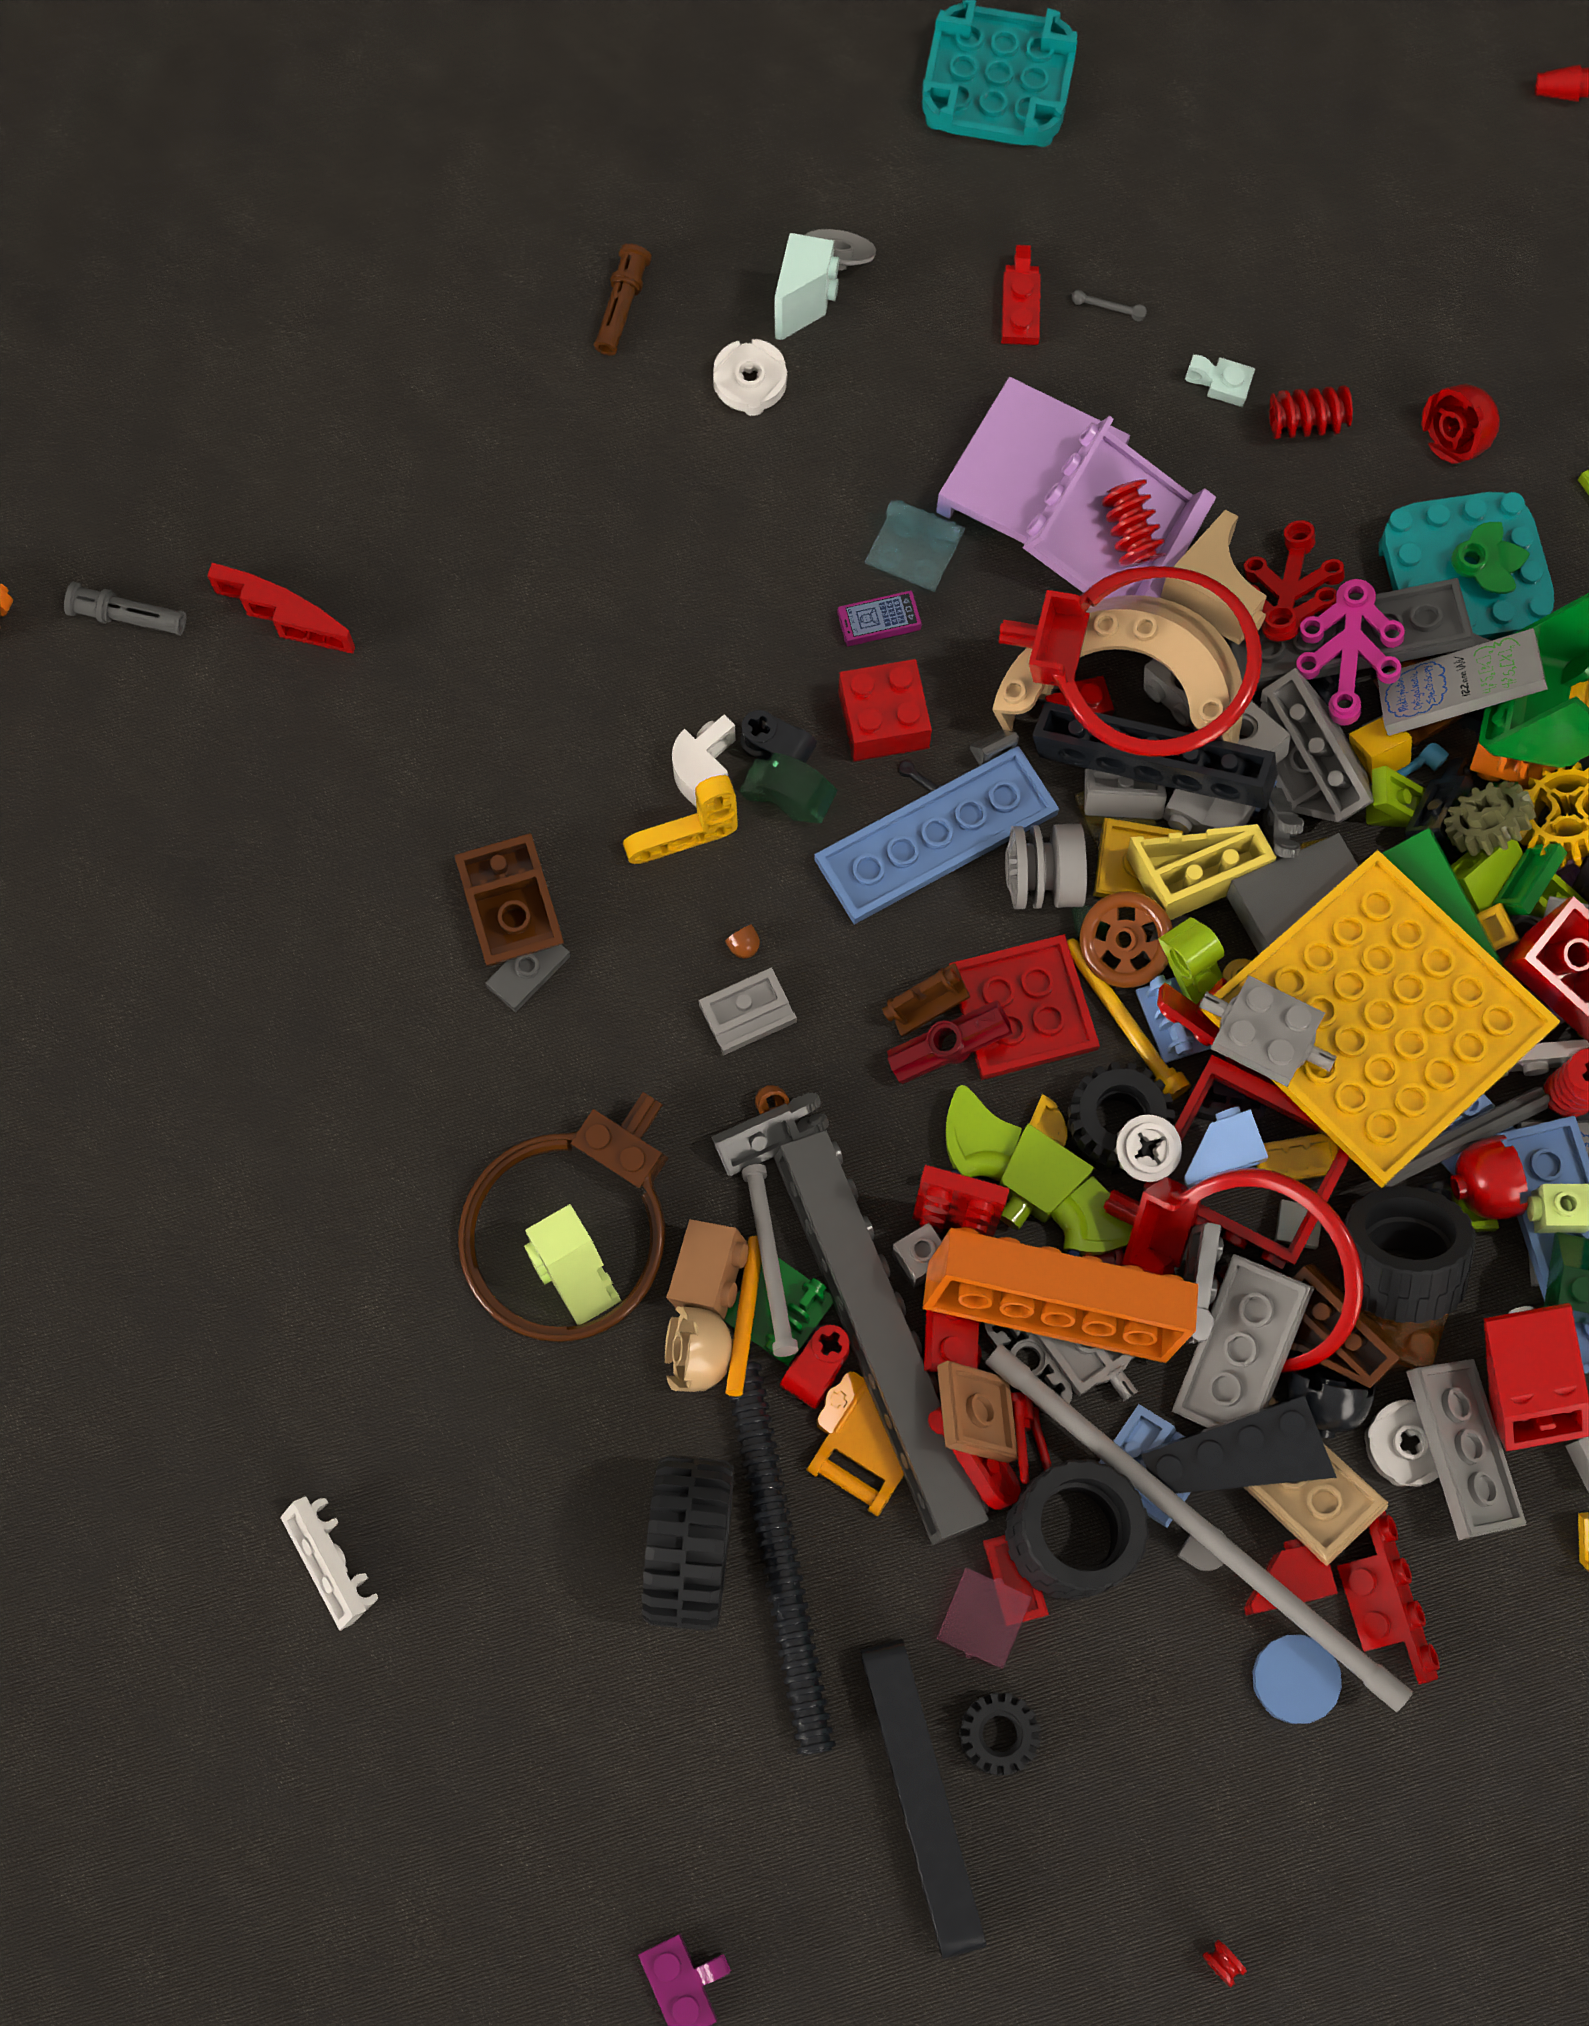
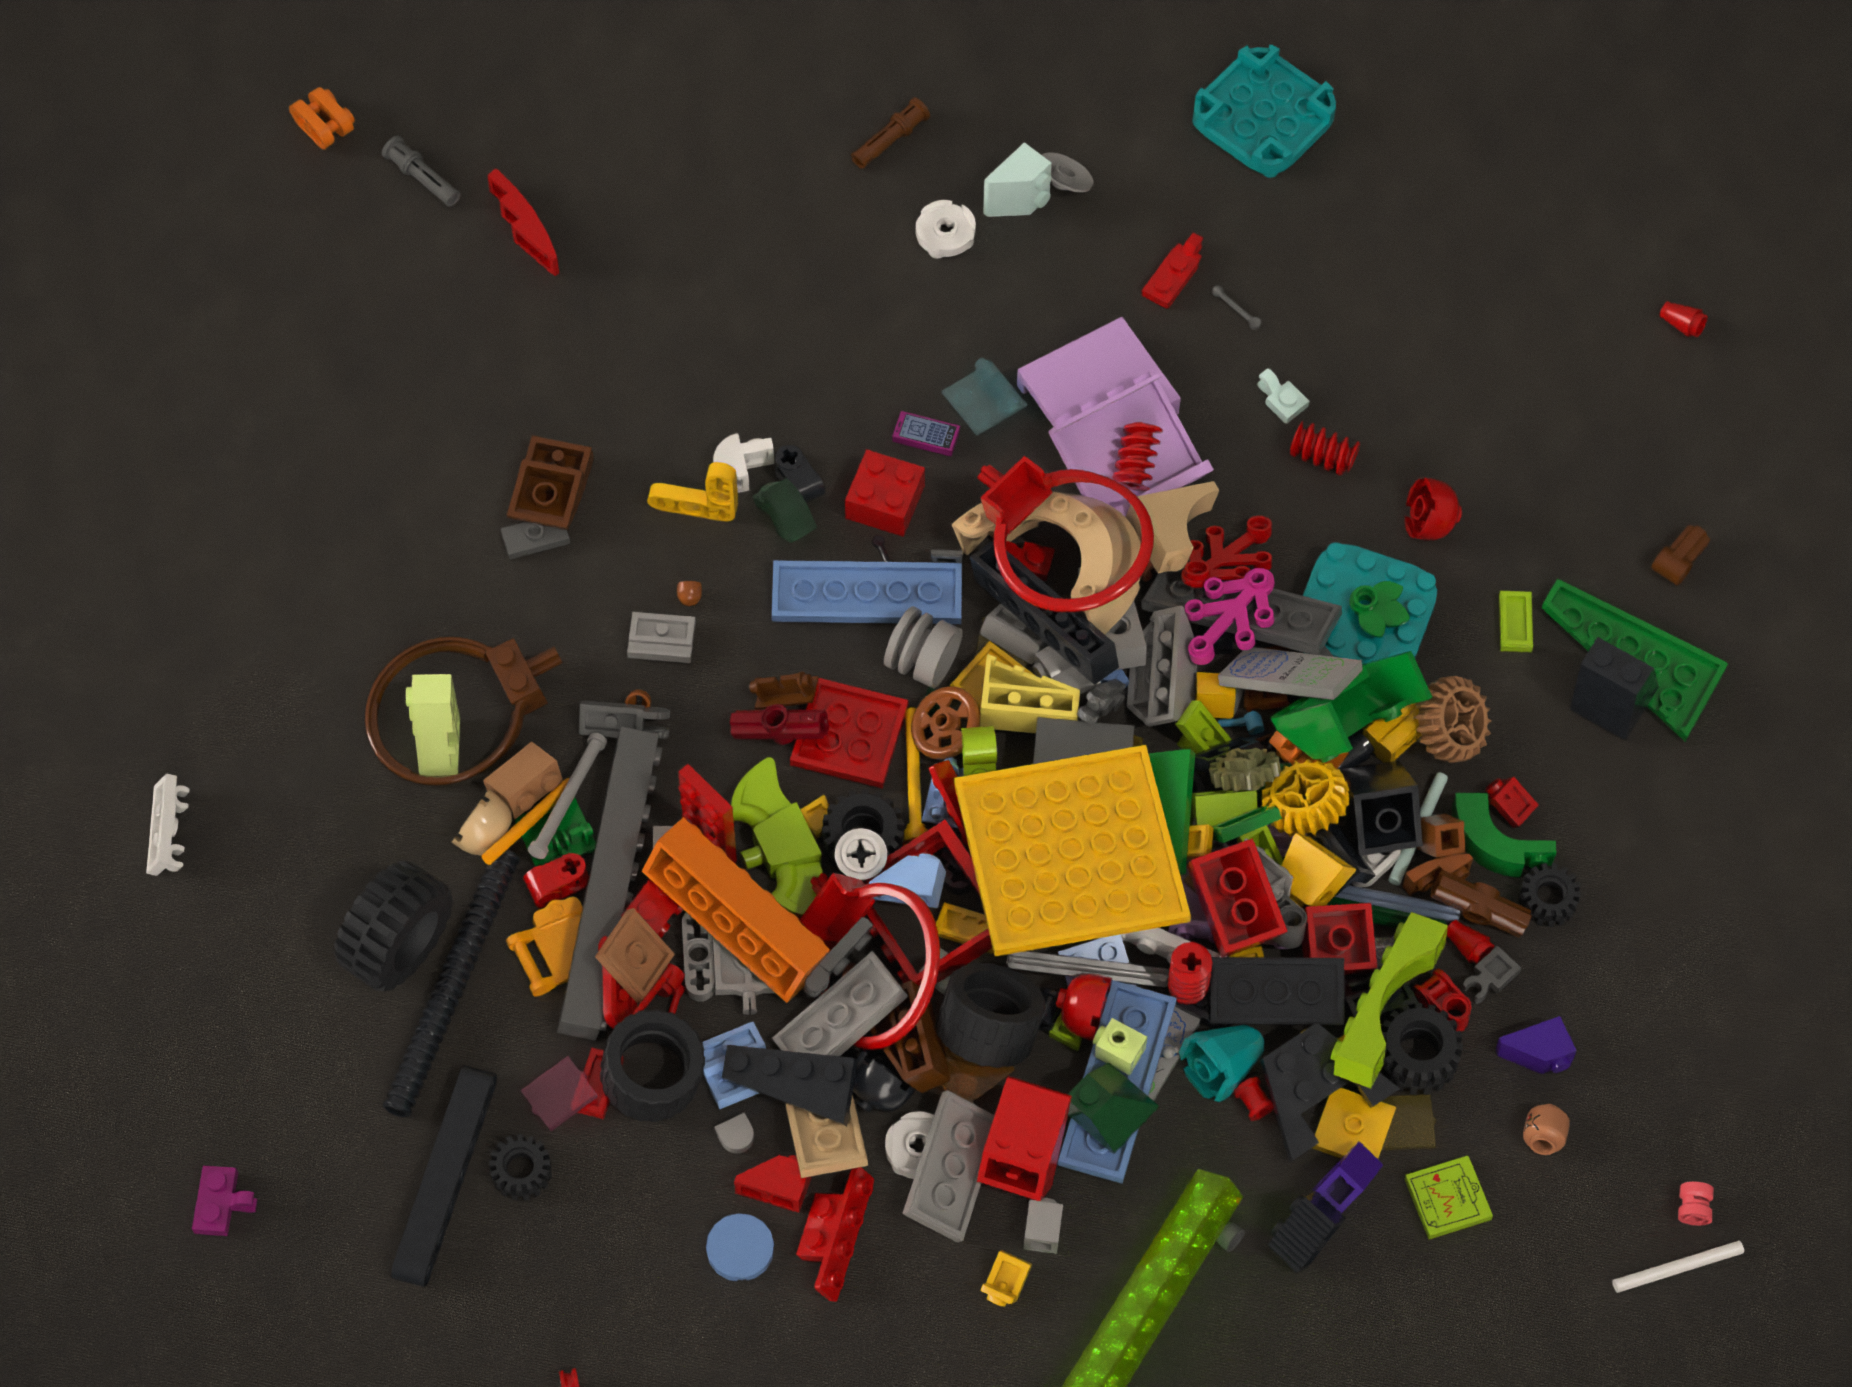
camera: 30 degrees right, 10 degrees down
(1267, 1031) = (983, 814): light grey plate -> none
(1373, 1675) = (783, 1258): light grey piece -> none

